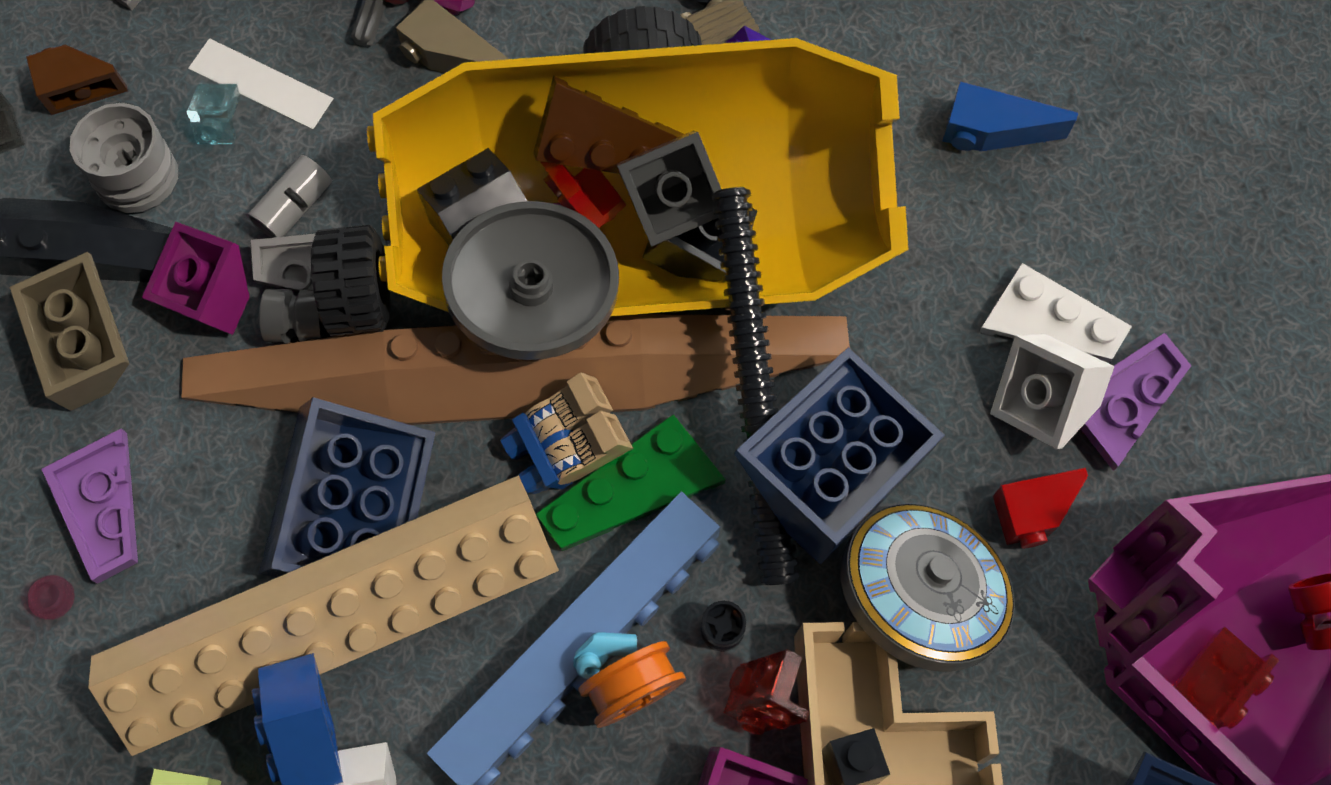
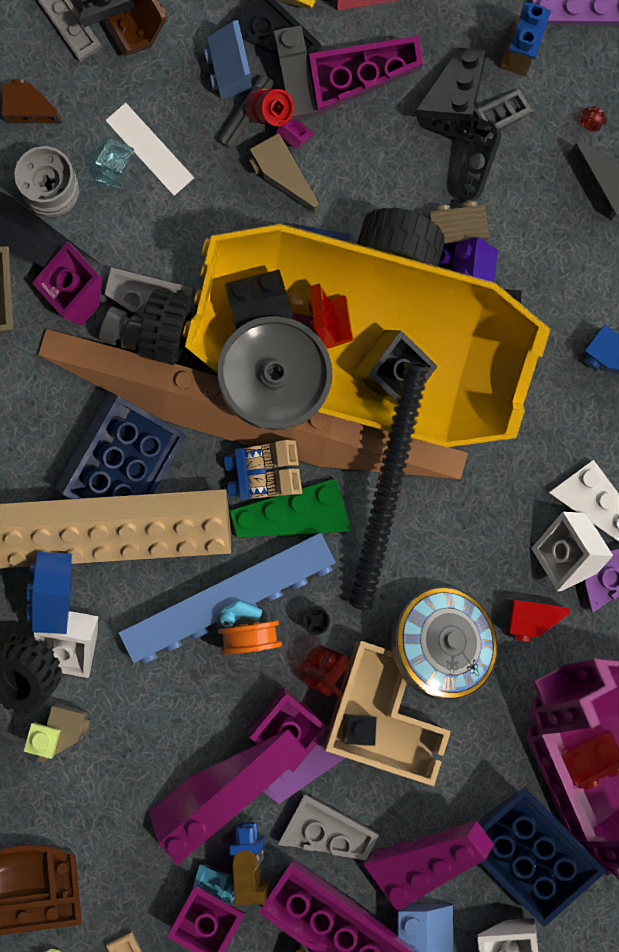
camera: 20 degrees right, 15 degrees up
(290, 197) = (144, 244): light grey pin -> none
(591, 133) = (352, 291): reddish brown wing -> none
(671, 187) = (383, 341): dark grey slope -> none
(836, 453) = (422, 545): dark blue slope -> none

